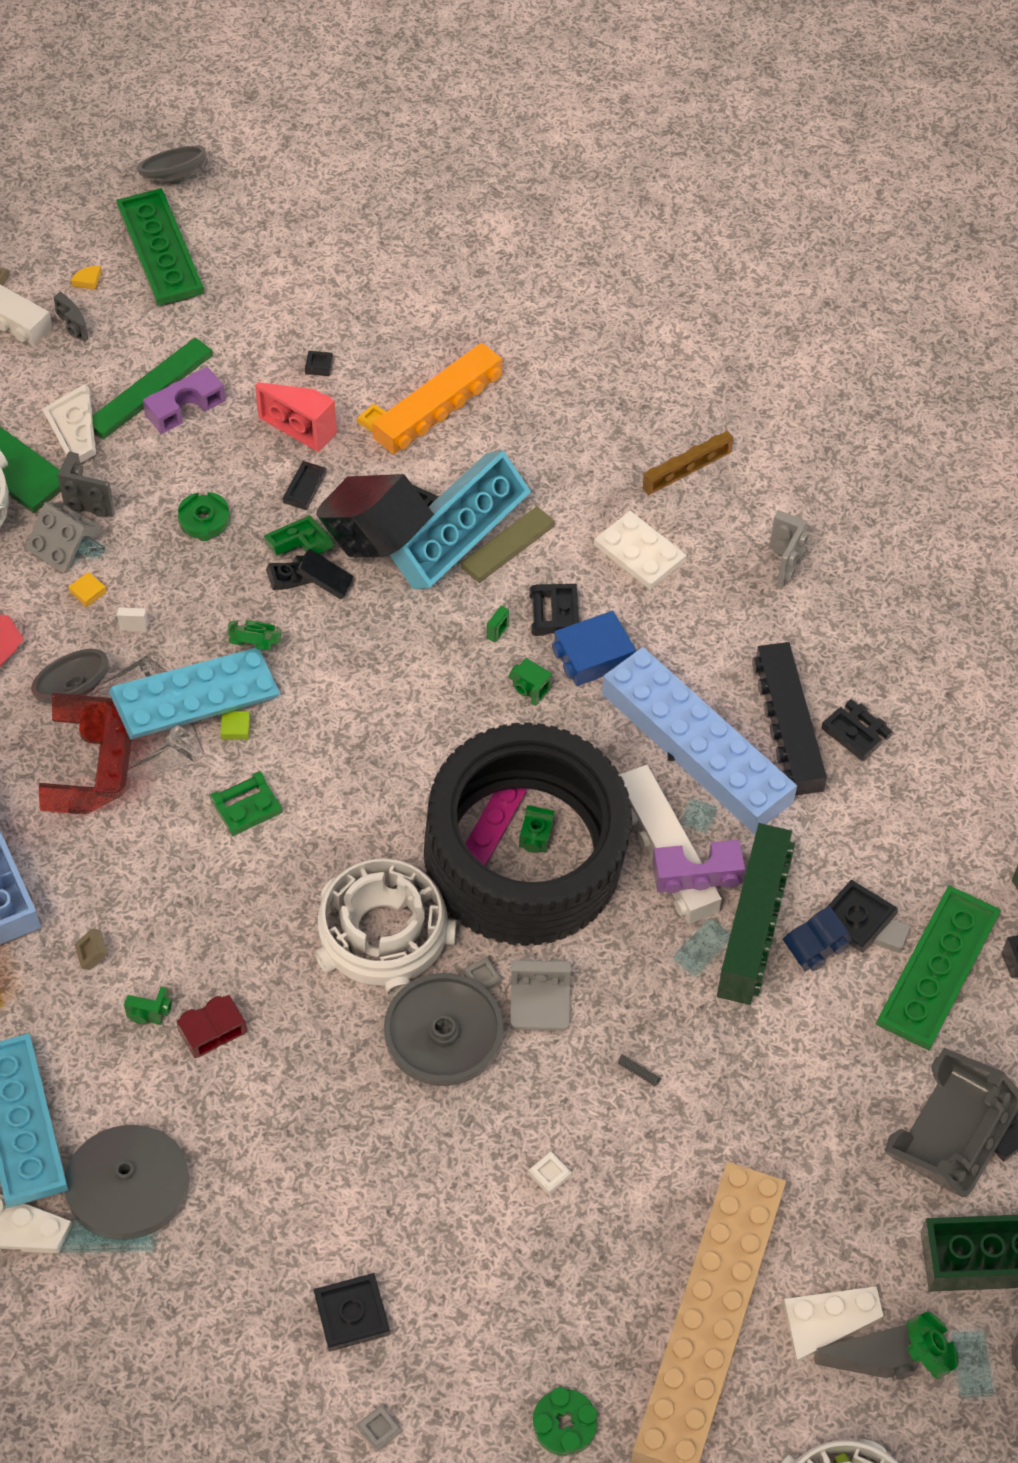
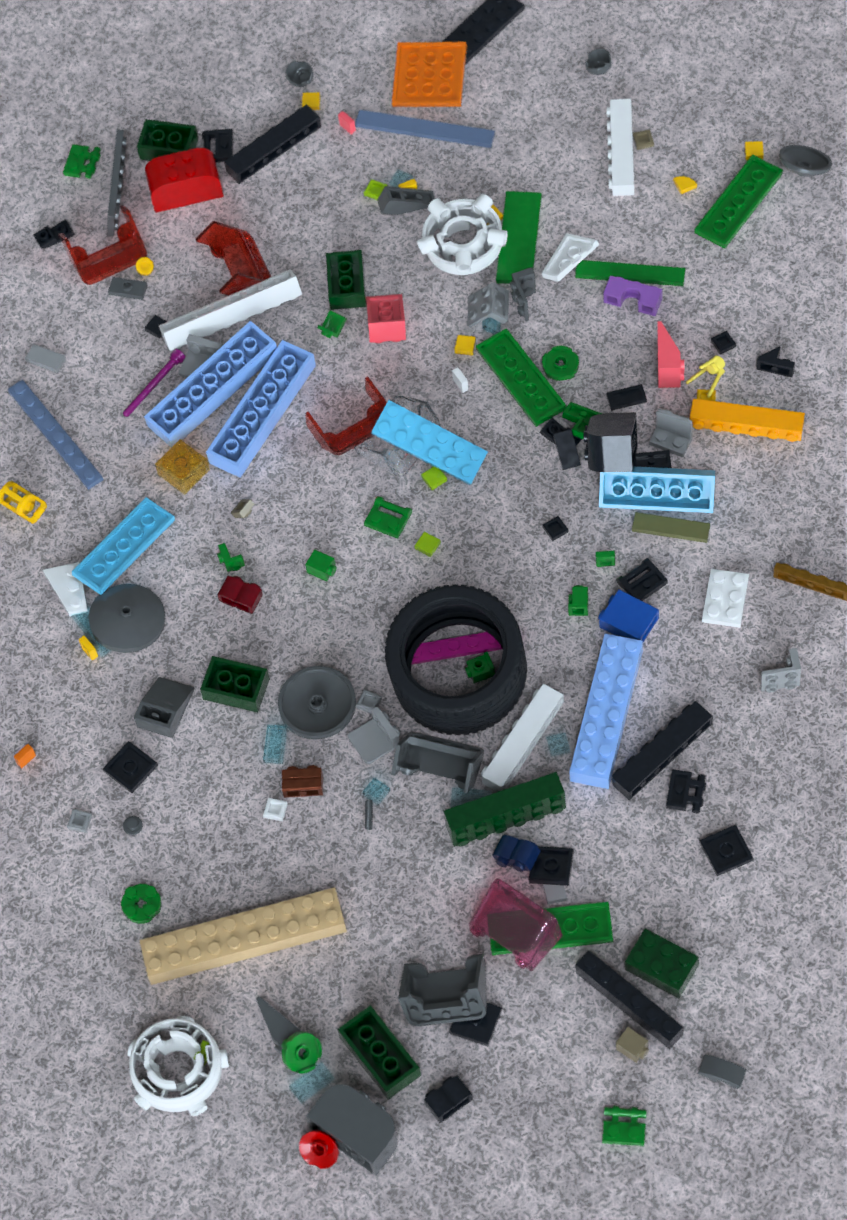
camera: 65 degrees right, 5 degrees up
(71, 314) = (644, 198): dark grey slope -> none
(71, 674) = (396, 378): dark grey dish -> none
(107, 198) = (754, 148): none -> yellow tile
(130, 1256) = (88, 648): none -> yellow tile
(185, 561) = (521, 377): none -> green plate
(226, 1440) = (24, 756): none -> orange tile
(251, 911) = (321, 565): none -> green brick
(254, 632) = (495, 443): green plate -> none
(299, 1214) = (163, 707): none -> dark grey slope
(319, 785) = (427, 544): none -> lime tile
(339, 1107) = (235, 684): none -> dark green brick
(344, 387) = (713, 366): none -> light yellow plant
(363, 889) = (363, 609): white piece -> none
(394, 335) = (771, 363): none -> black slope
(396, 457) = (672, 433): none -> light grey bracket
(412, 649) = (555, 528): none -> black tile
(441, 1361) = (132, 825): none -> dark grey plate
(456, 1116) = (275, 744): none -> clear light blue tile
(538, 1115) = (302, 781): none -> copper brick
(613, 1042) = (376, 791): none -> clear light blue tile
(632, 938) = (438, 757): none -> dark grey windscreen
(677, 873) = (495, 748): medium lavender arch -> none
(830, 1317) = (287, 995): white wing -> none
(917, 992) = (516, 924): none -> clear pink windscreen
(961, 735) = (726, 850): none -> black plate

